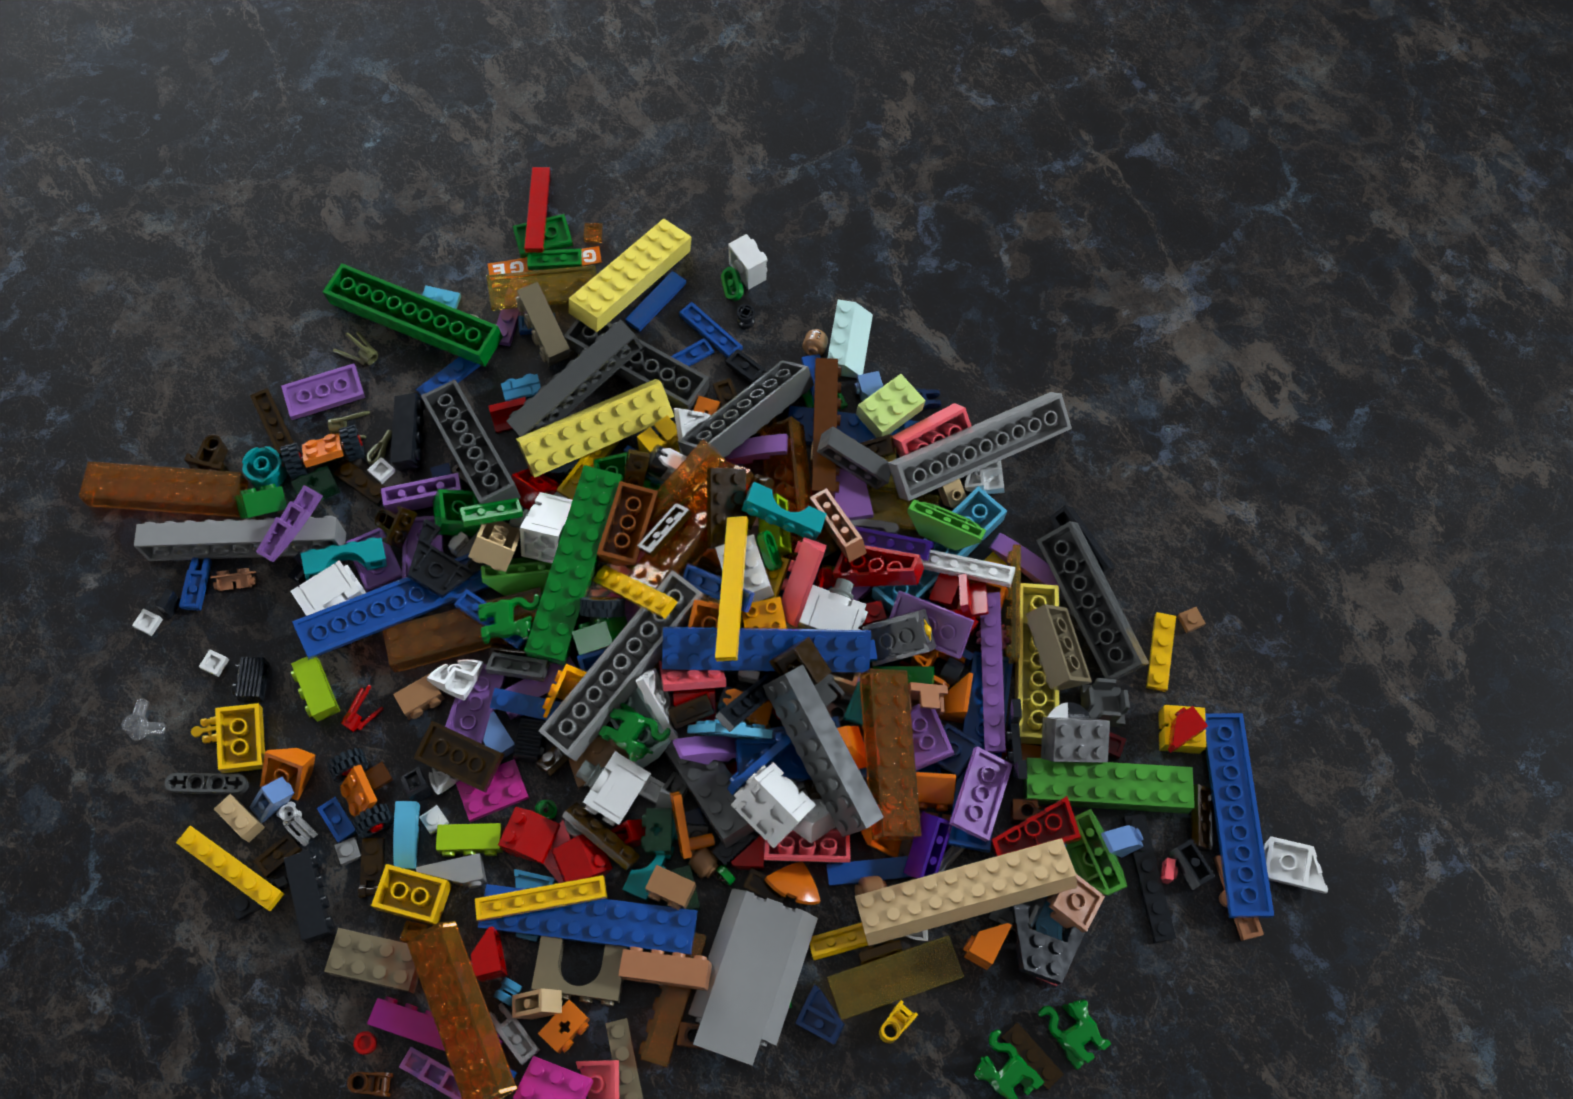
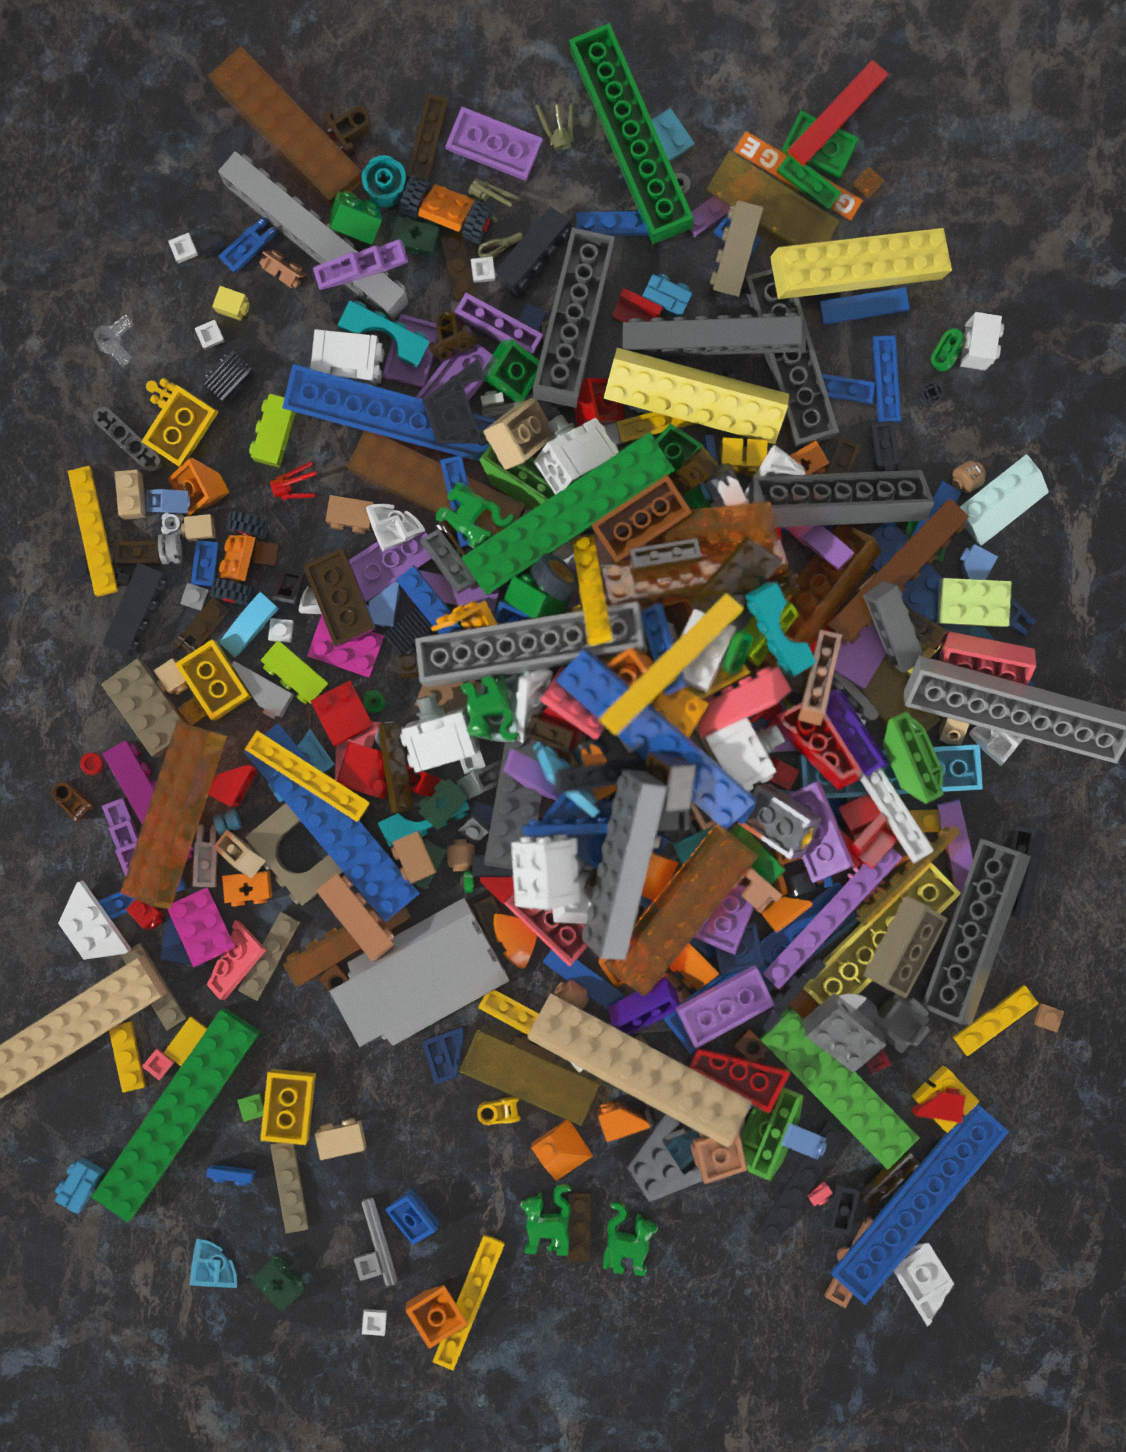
camera: 40 degrees right, 20 degrees up
(213, 629) = (231, 303): none -> light yellow brick
(311, 798) = (199, 528): none -> tan brick
(377, 922) = (170, 678): none -> tan brick
(490, 512) = (536, 404): green plate -> none
(685, 843) = (457, 831): orange piece -> none
(967, 1010) = (561, 1149): none -> orange slope

